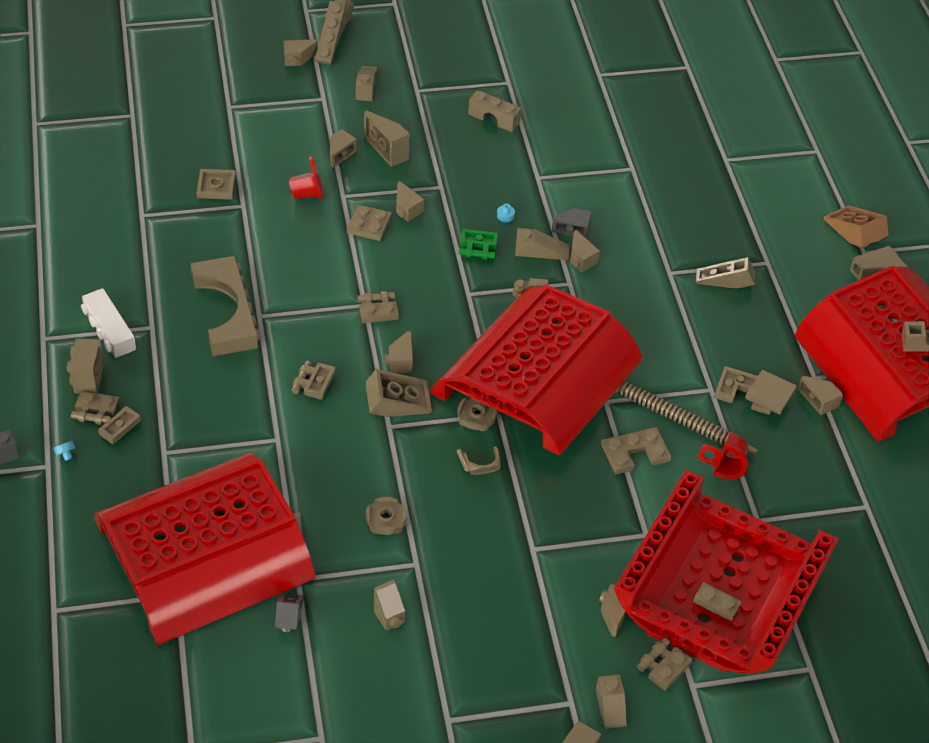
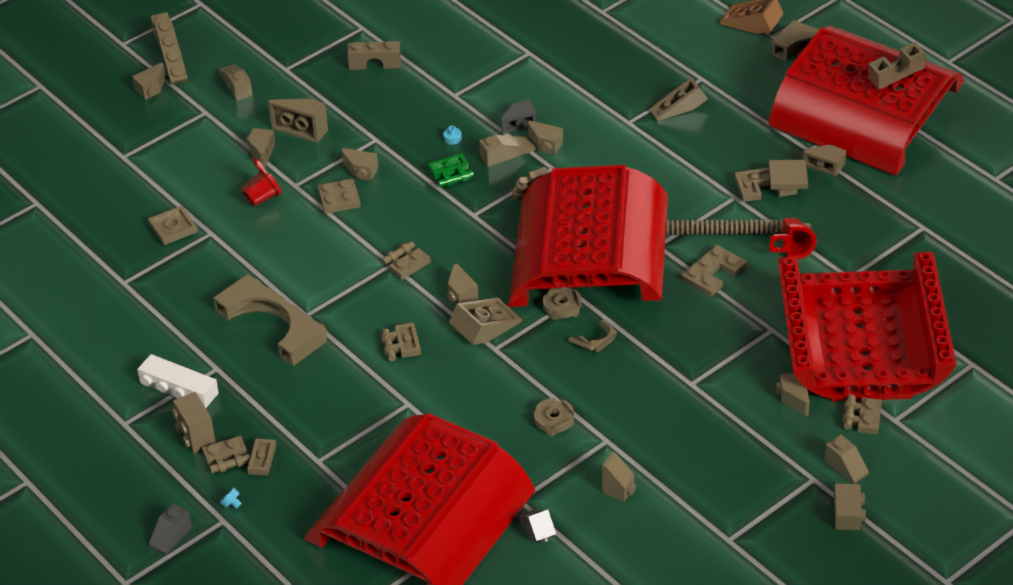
camera: 25 degrees left, 5 degrees down
(717, 601) = (870, 348): dark tan plate -> none

